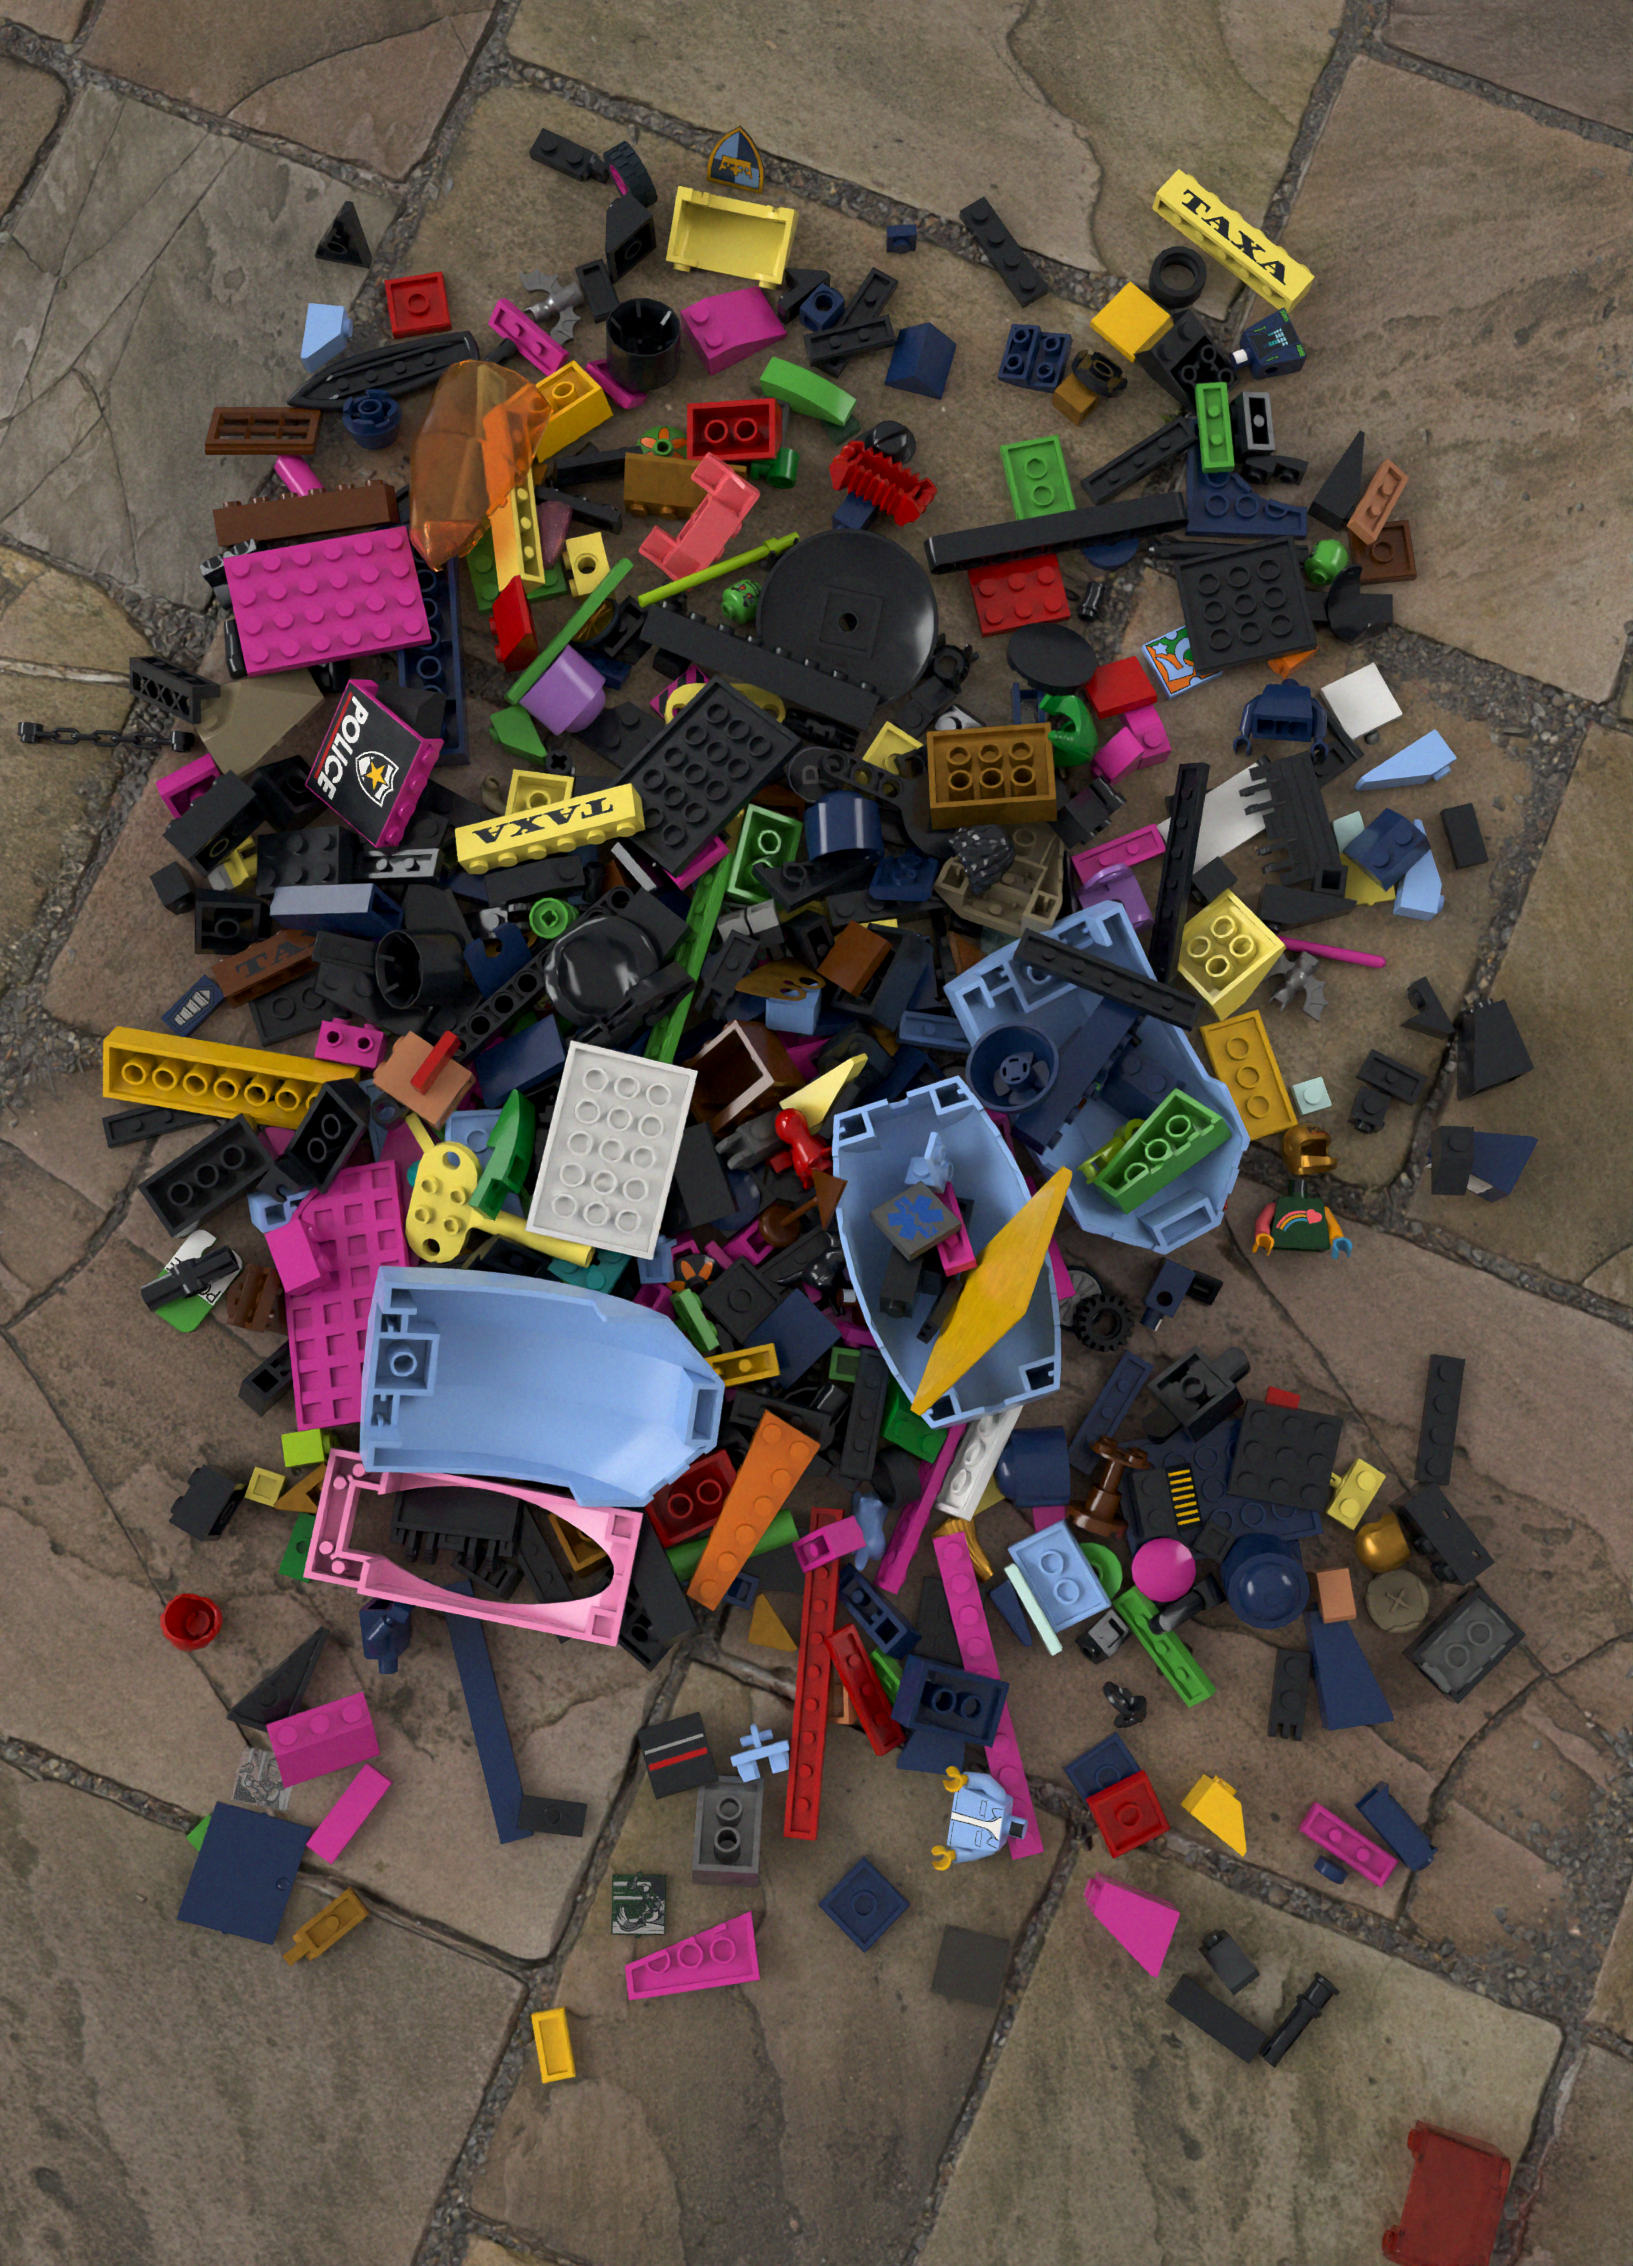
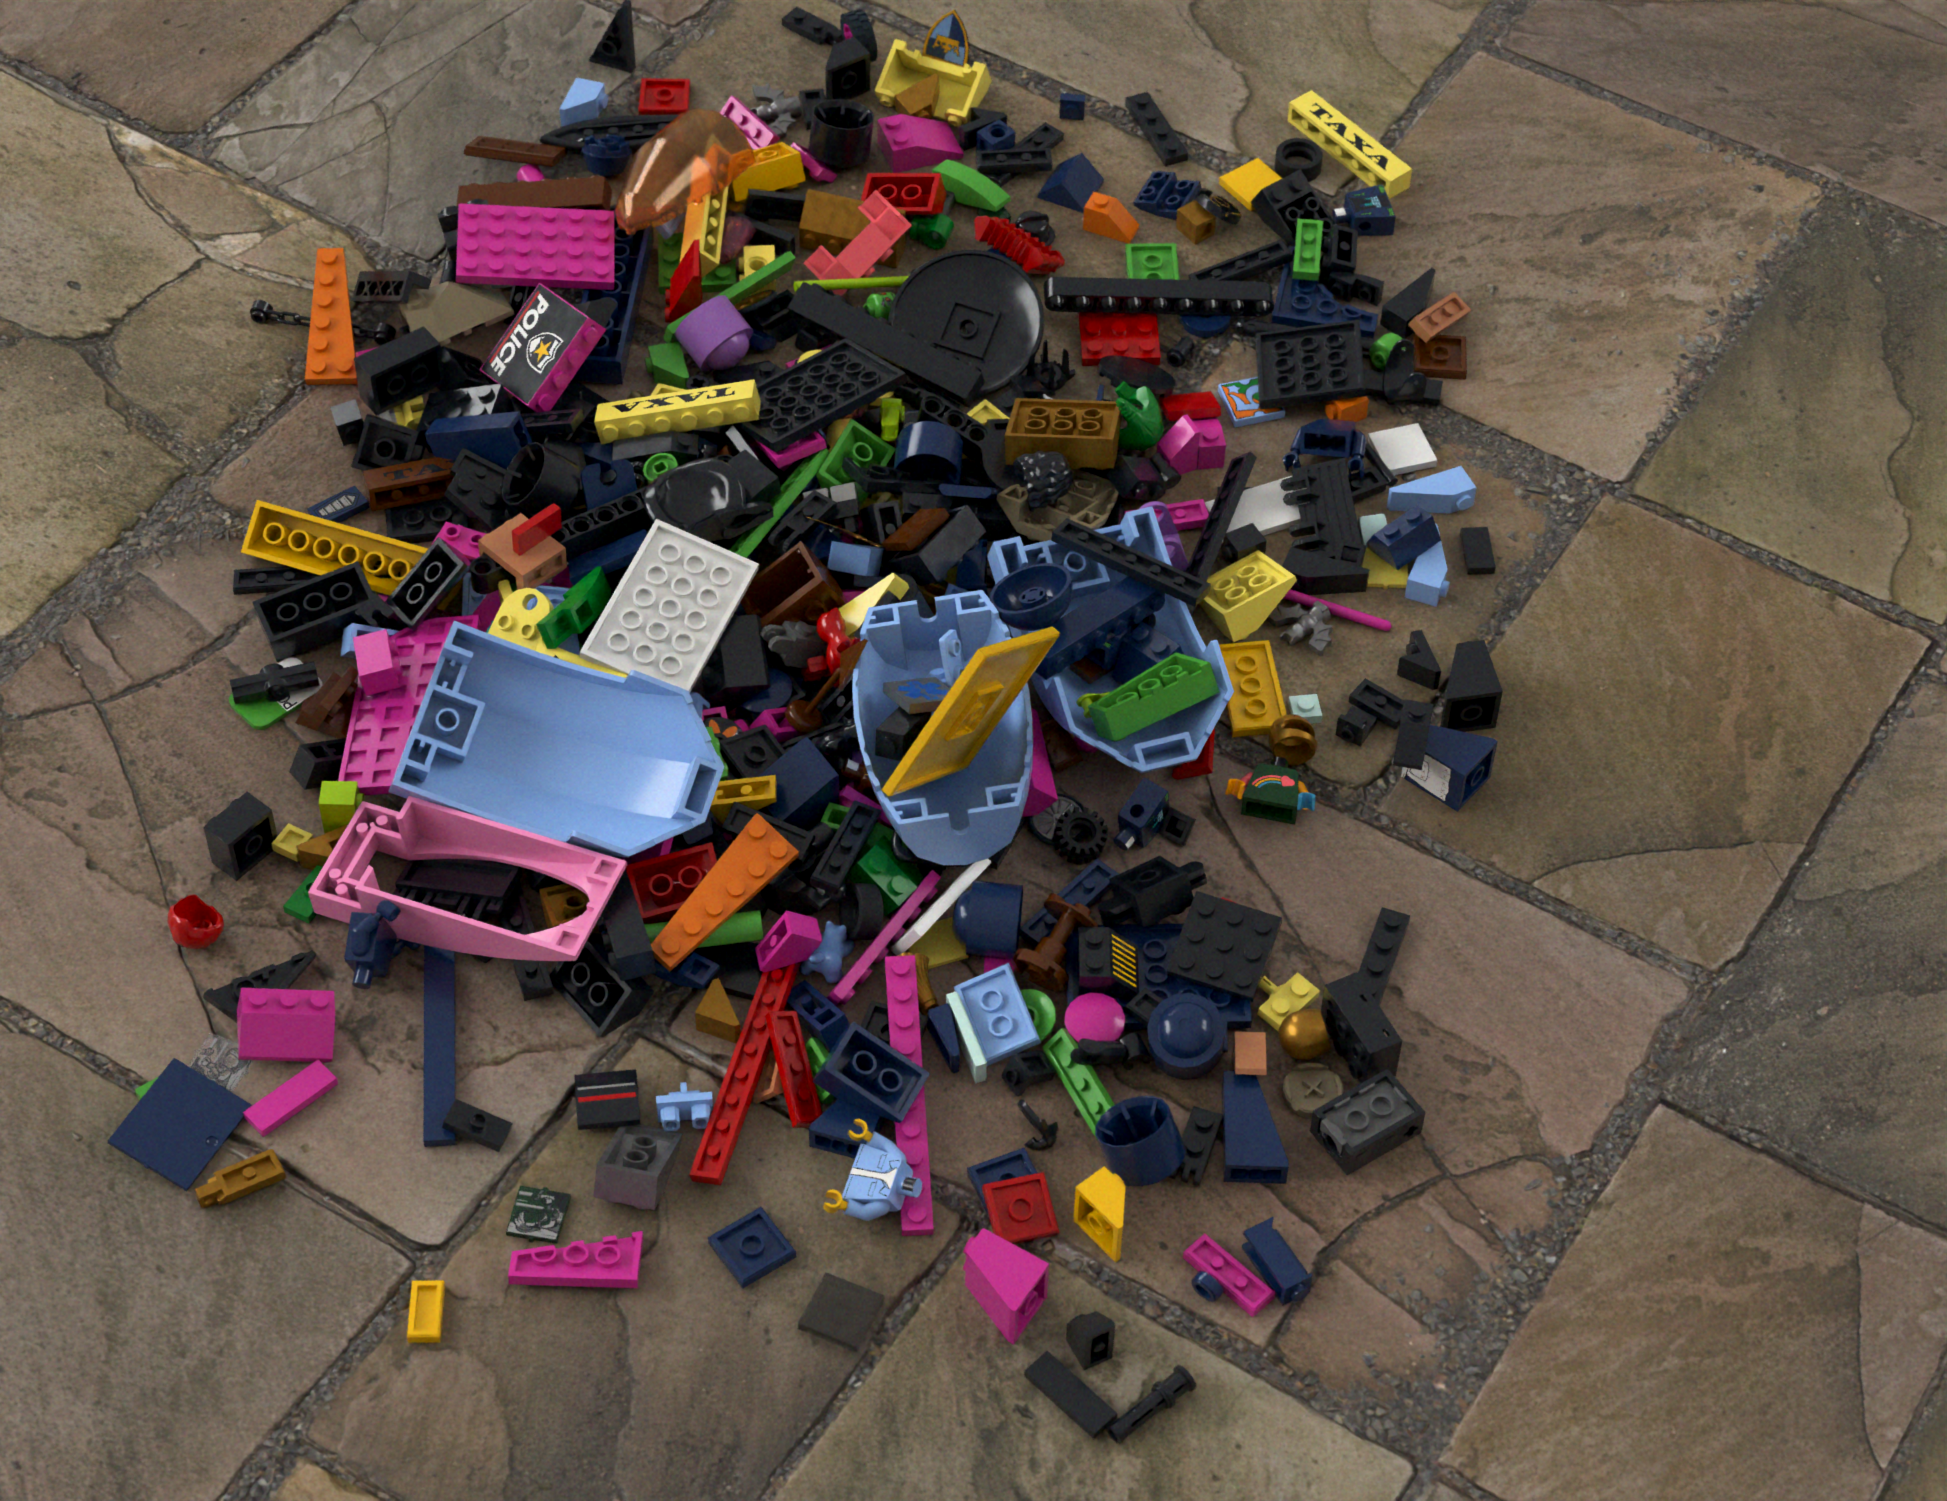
camera: 10 degrees right, 30 degrees down
(120, 758) = (330, 332): none -> orange wing
(720, 267) = (919, 99): none -> pearl gold slope
(791, 788) = (890, 416): none -> lime piece
(976, 412) = (1109, 218): none -> orange slope
(1241, 1727) = (1140, 1140): none -> dark blue piece

